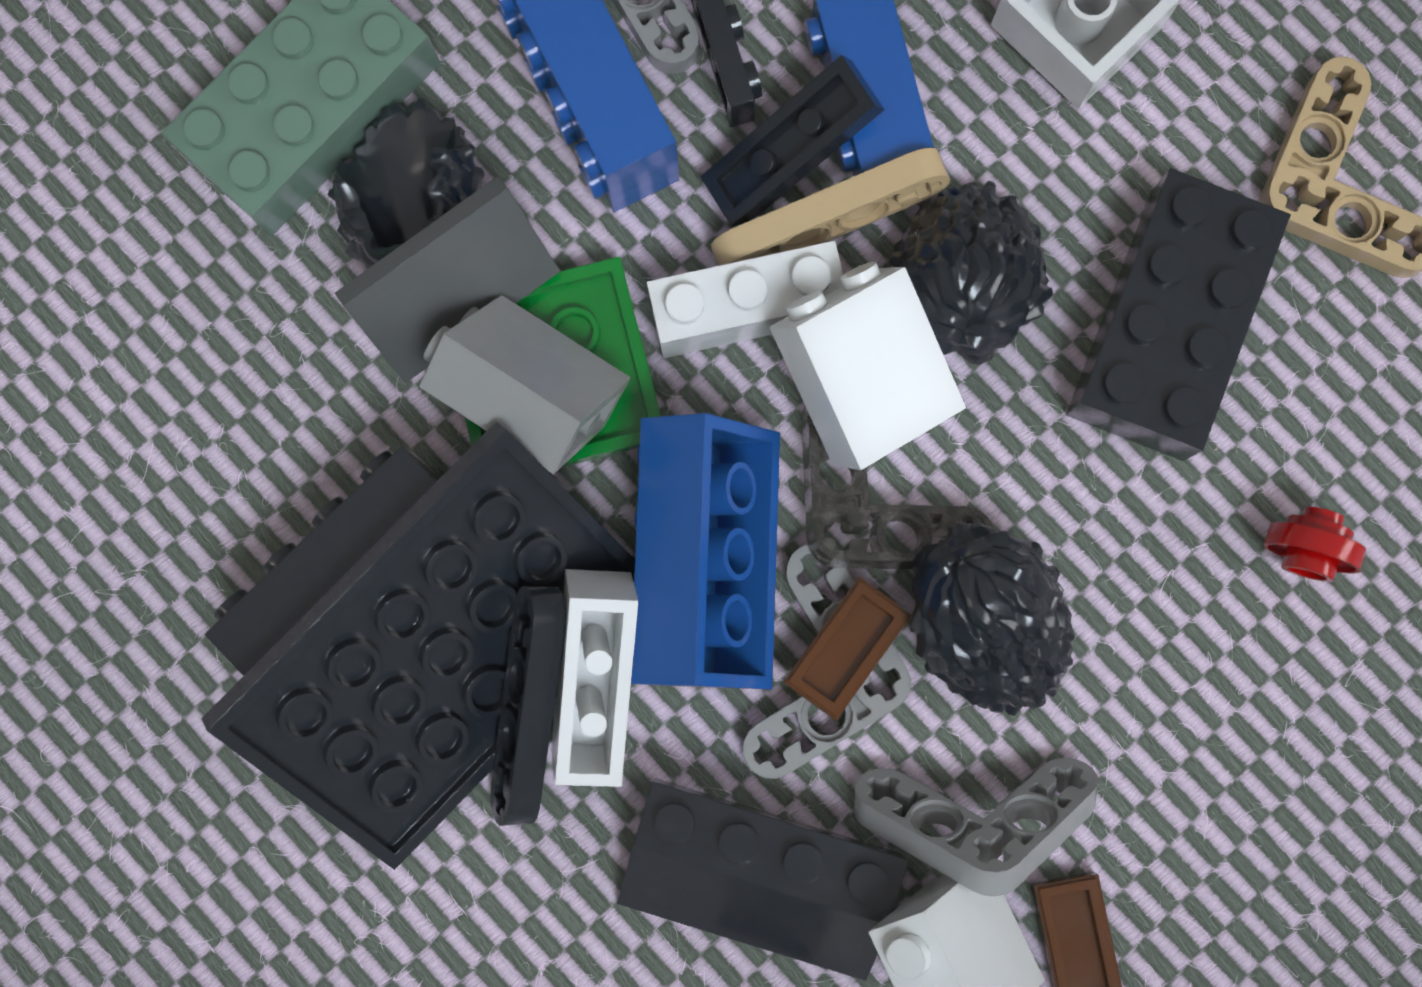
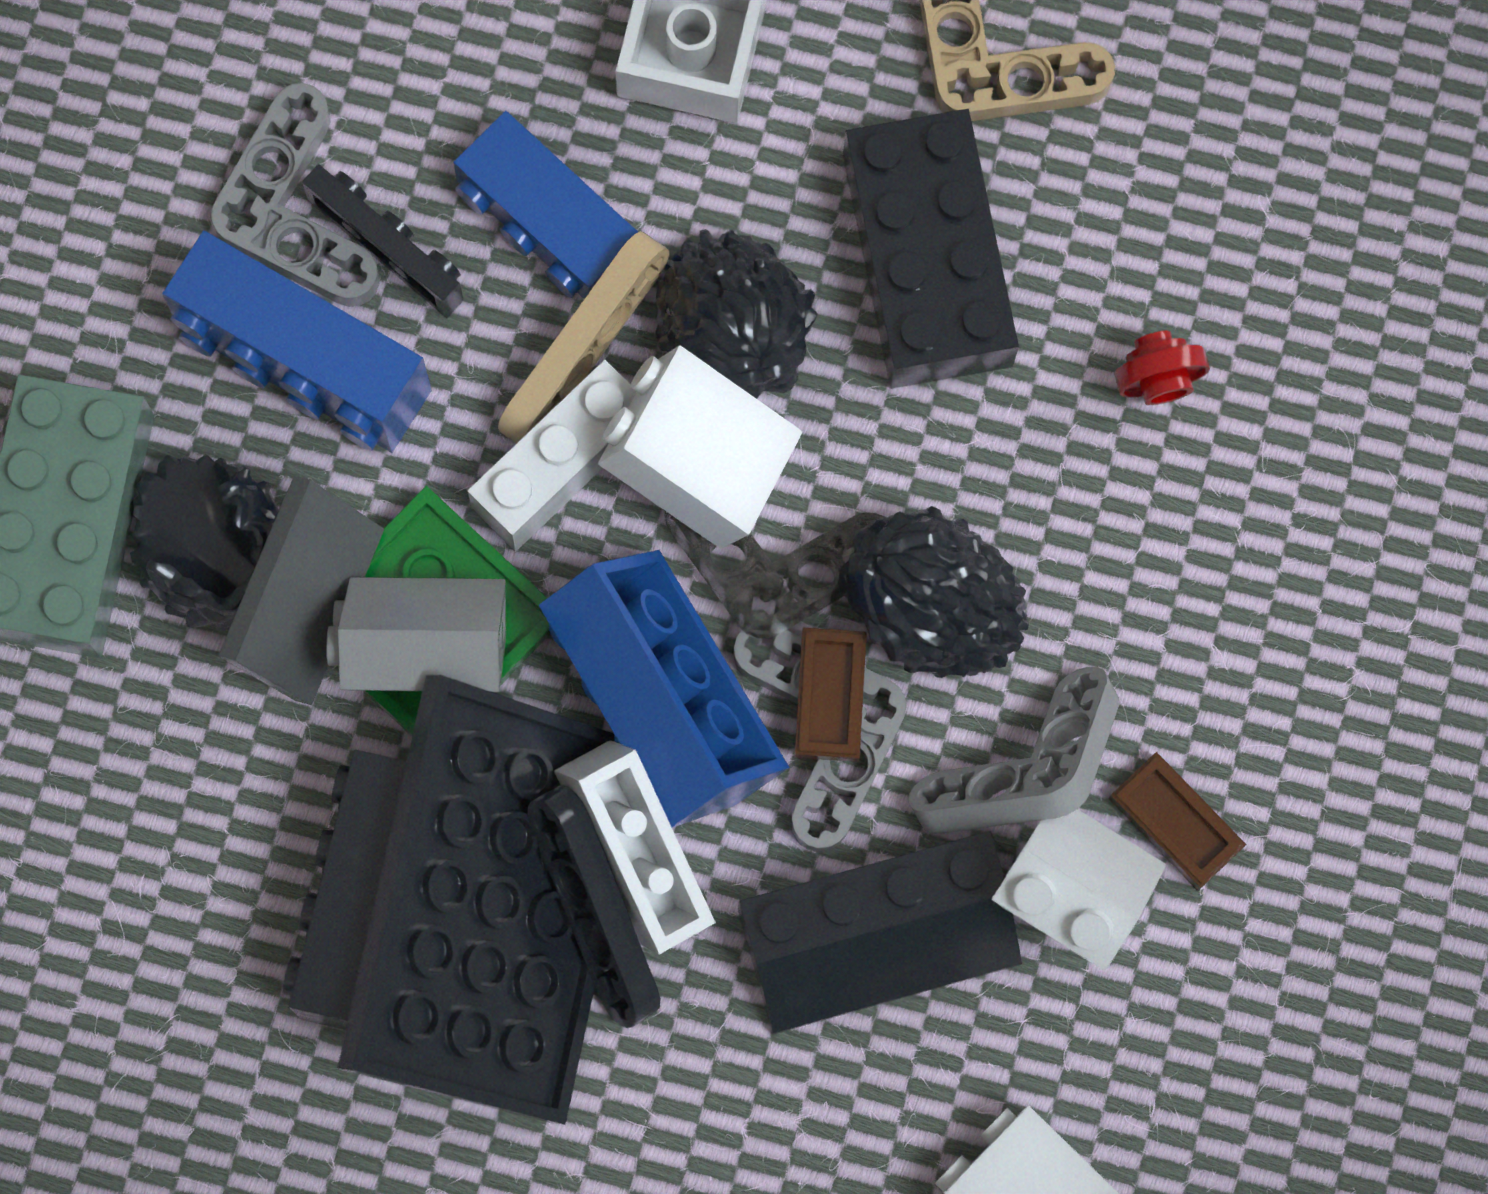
camera: 40 degrees left, 5 degrees down
(792, 142) = (514, 300): black plate -> none

